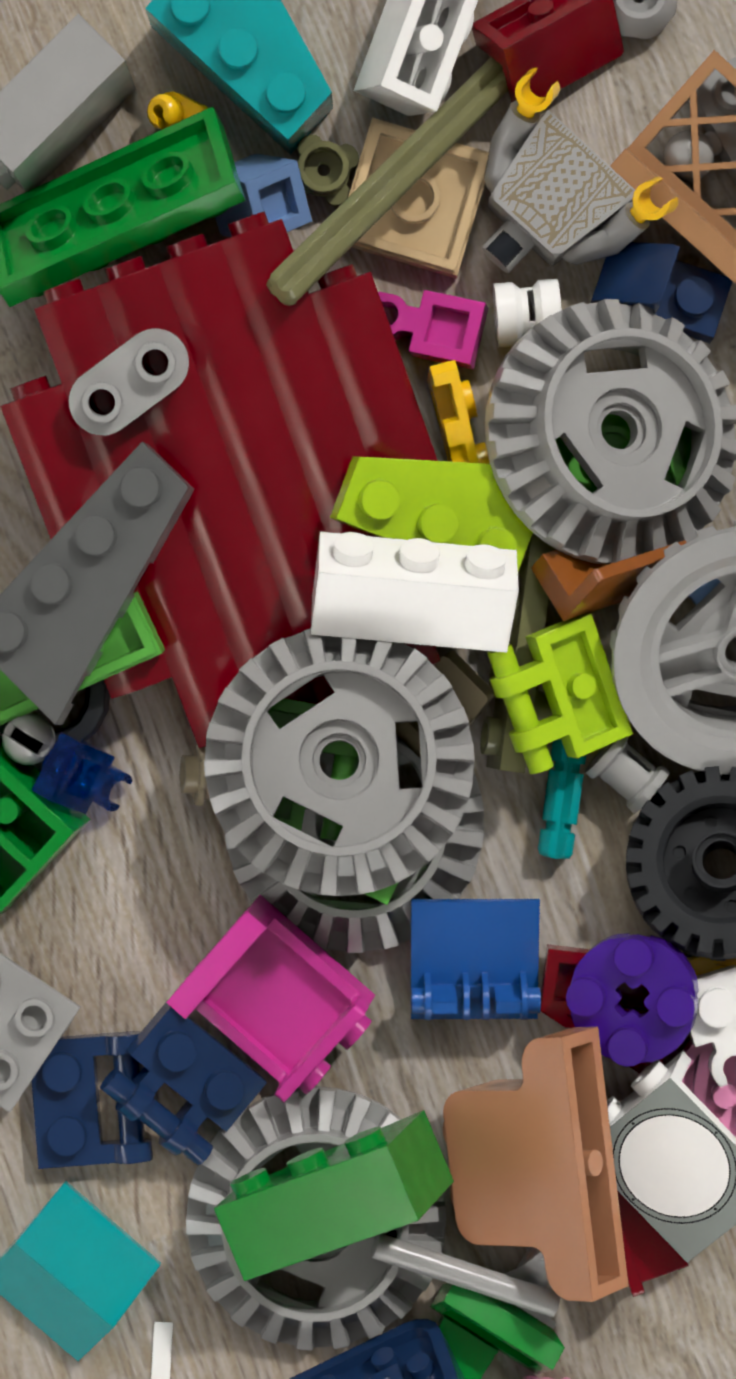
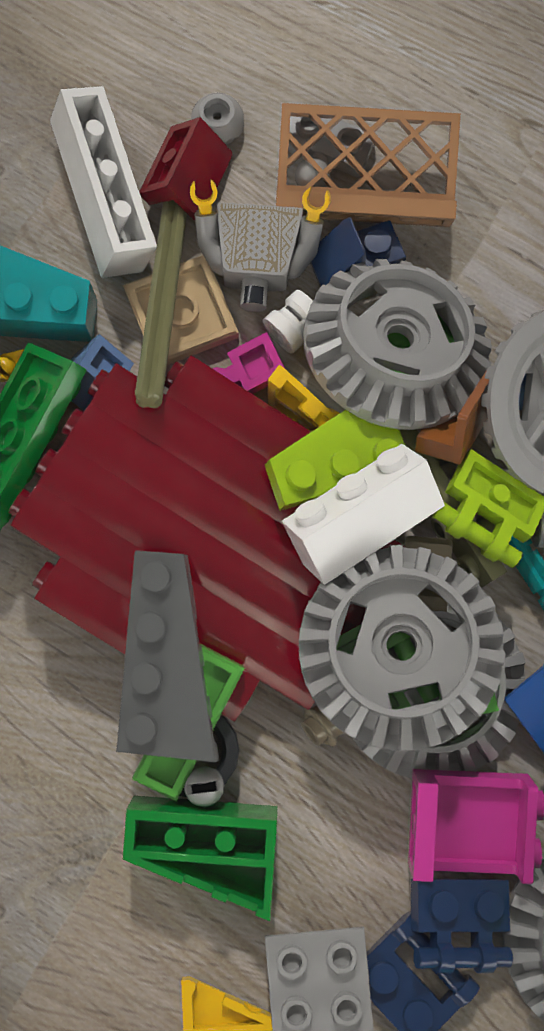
camera: 45 degrees left, 10 degrees down
(78, 775) = (251, 784): clear blue plate -> none
(128, 381) = (99, 521): light grey plate -> none
(338, 158) = (123, 322): olive plate -> none

